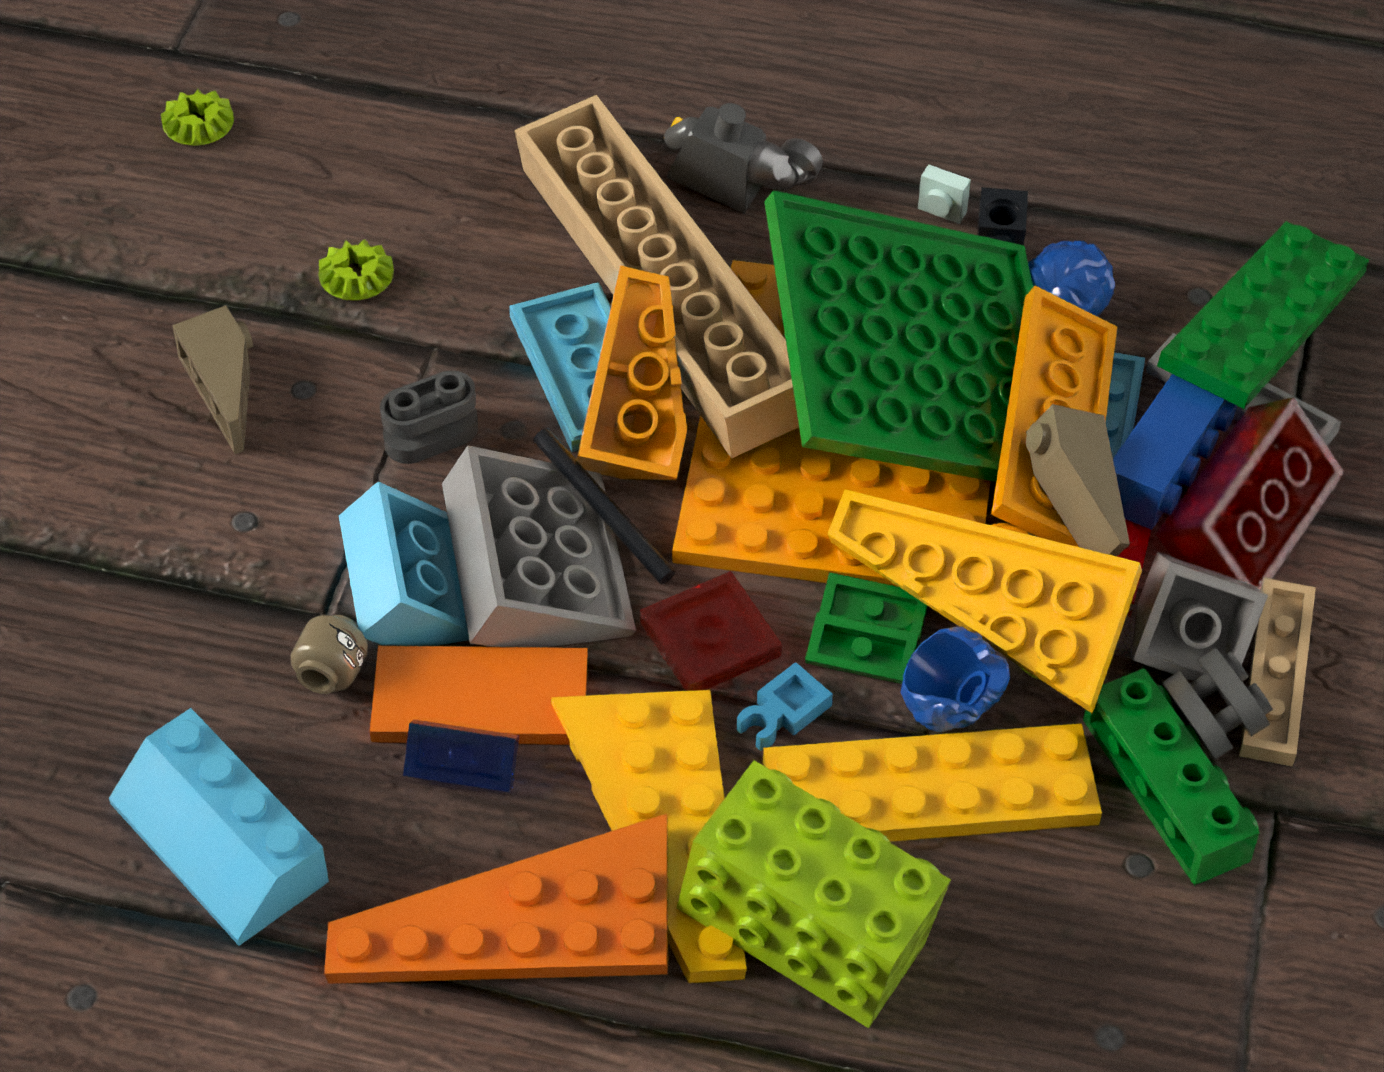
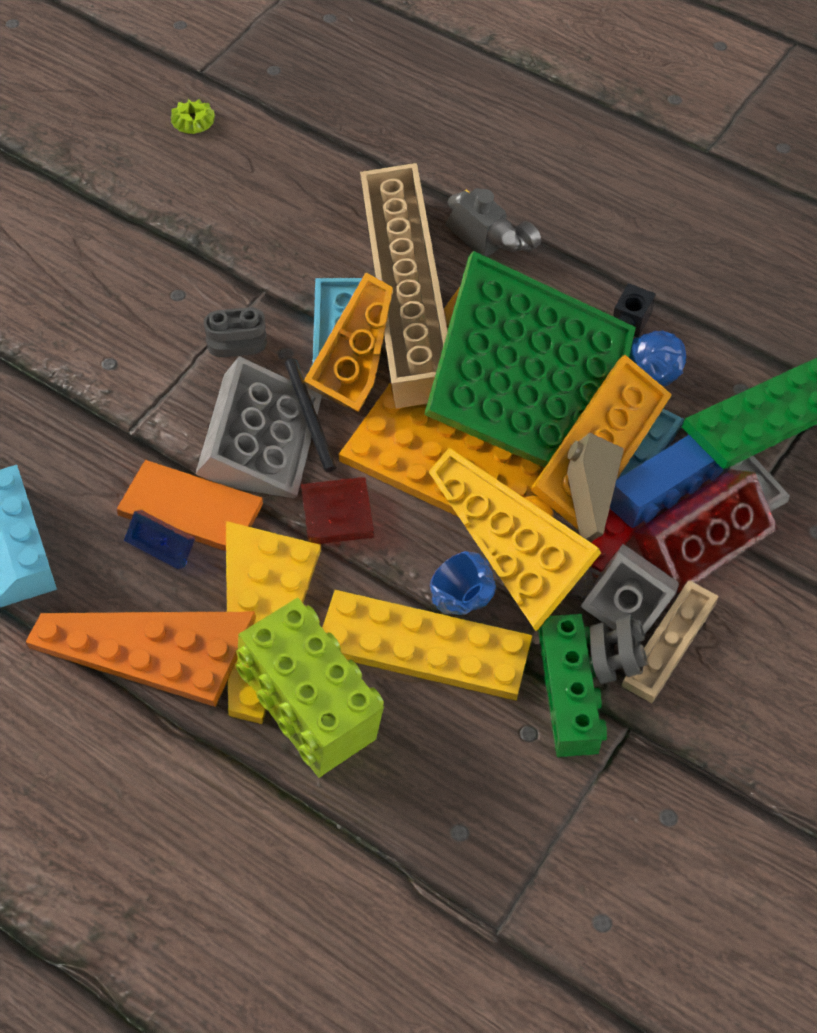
camera: 20 degrees right, 5 degrees up
(218, 363) = (134, 270): dark tan slope -> none
(329, 654) = (113, 456): dark tan head -> none
(343, 283) = (248, 238): lime gear -> none
(402, 570) = (177, 419): medium azure slope -> none
(787, 702) = (362, 566): dark azure plate -> none
(866, 628) = (430, 535): green slope -> none
(944, 194) = (607, 281): light aqua plate -> none

